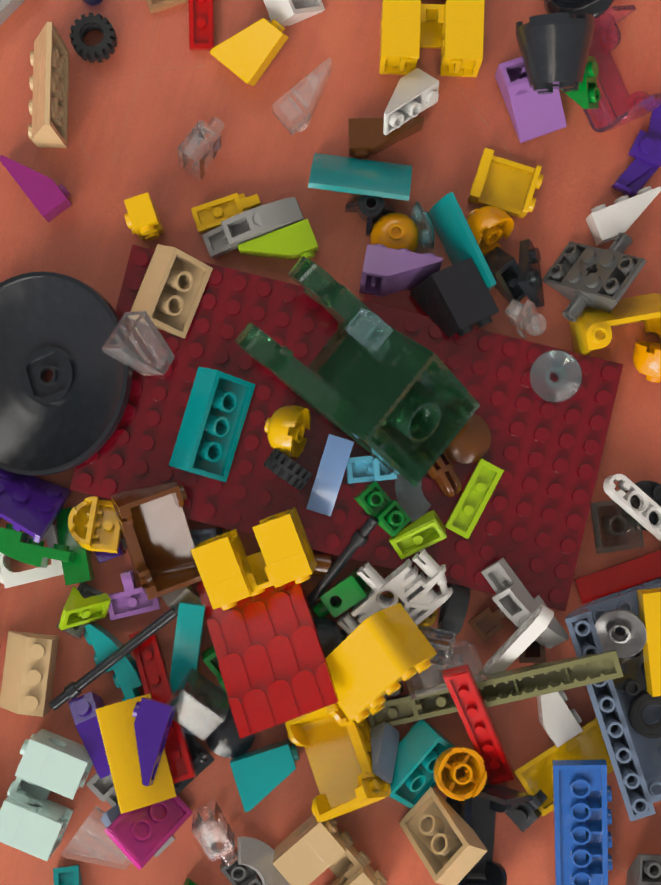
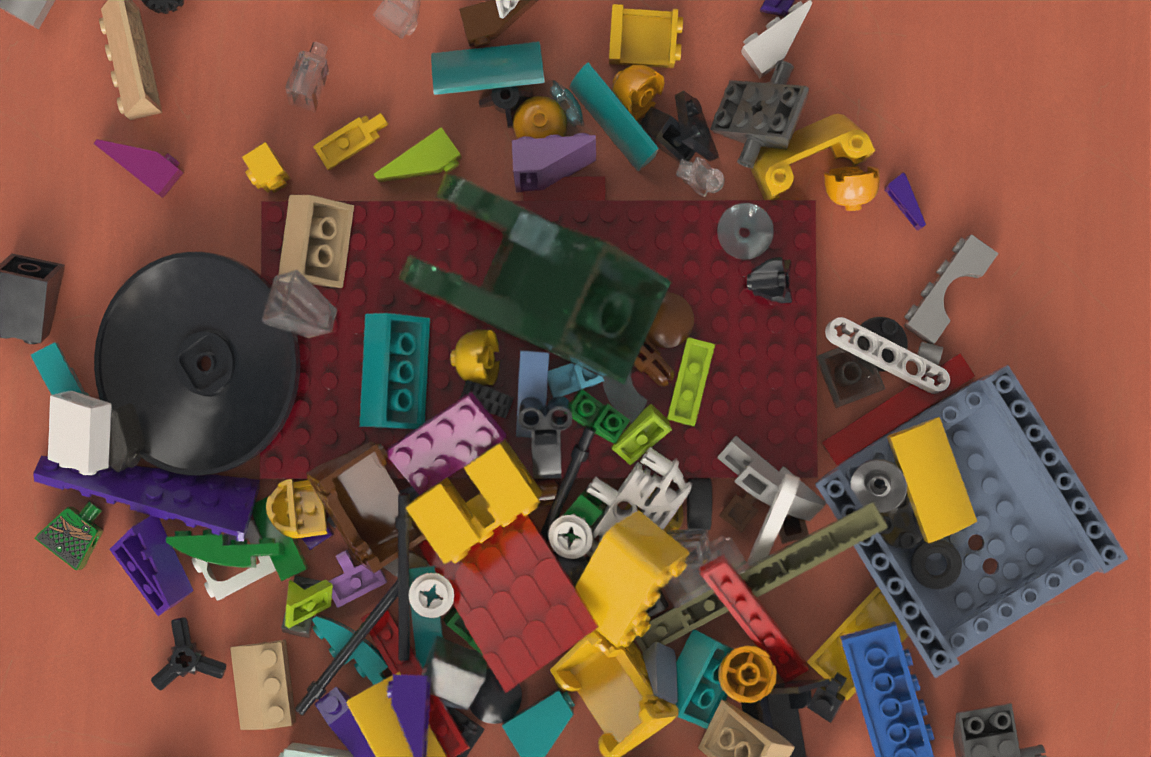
camera: 10 degrees left, 0 degrees up
(186, 563) = (403, 523): none -> black bar
(198, 643) = (419, 600): none -> white gear
(241, 500) = (445, 443): none -> plate
(252, 225) = (384, 148): light grey slope -> none
(323, 613) = (561, 543): none -> white gear
(333, 513) = (545, 433): none -> black piece
(456, 298) = (621, 174): black slope -> none
(556, 717) = (836, 592): white slope -> none
(568, 425) = (771, 280): none -> black brick

